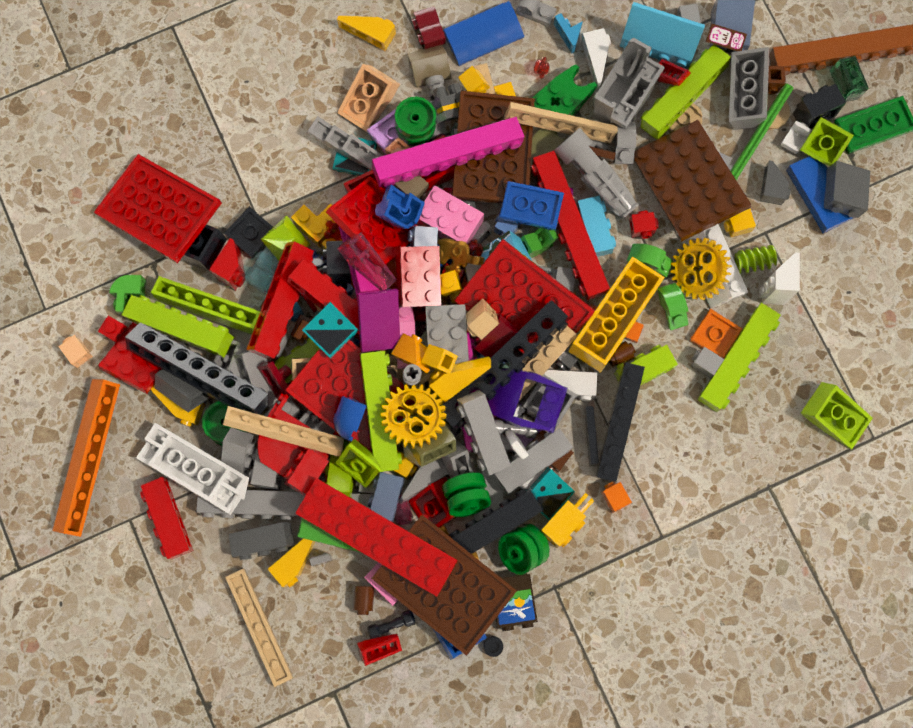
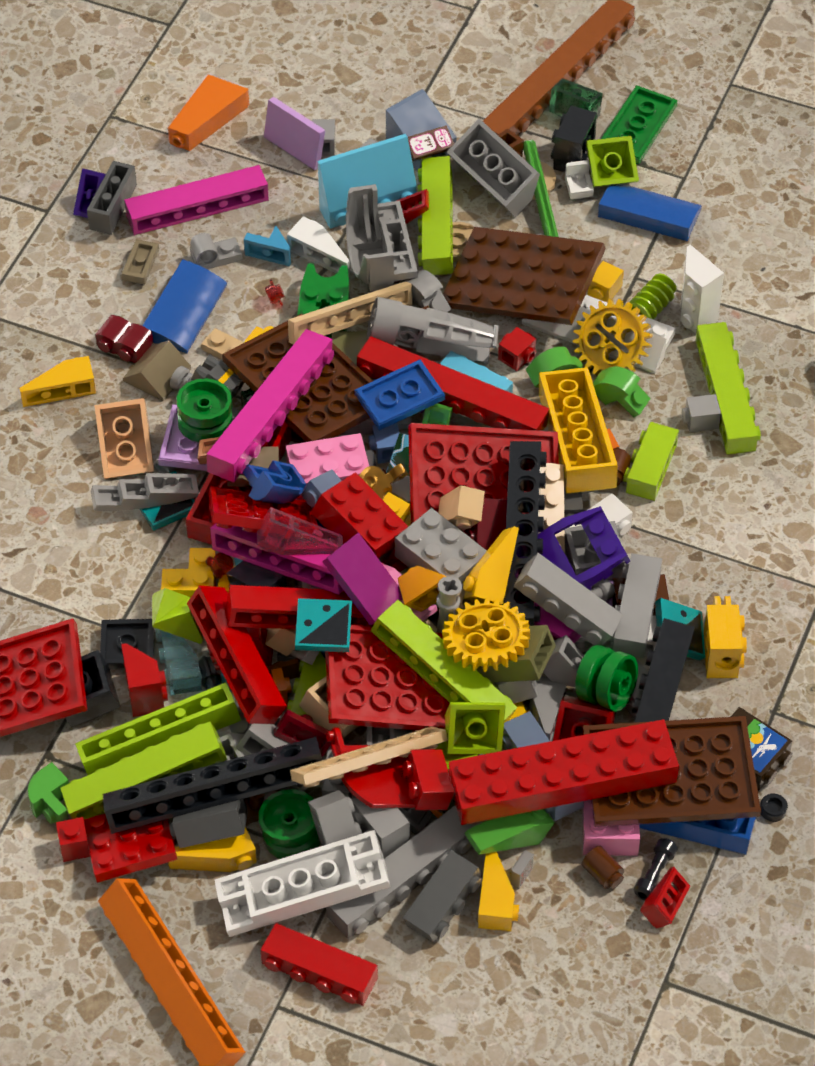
camera: 45 degrees left, 25 degrees down
(75, 351) = (48, 893): light nougat brick -> none
(259, 627) = (526, 983): tan plate -> none
(348, 417) = (423, 686): blue brick -> none
(439, 359) = (461, 558): yellow brick -> none
(474, 81) = (221, 342): yellow brick -> none
(516, 444) = (612, 592): white tile -> none
(523, 549) = (714, 672): green wheel -> none
(591, 436) = (671, 558): black tile -> none
(616, 496) = (744, 585): orange brick -> none
(620, 421) = (679, 513): black brick -> none
(716, 333) = (680, 383): orange tile -> none
(774, 185) = (601, 228): dark grey slope -> none
(847, 189) = (671, 185): dark grey brick -> none

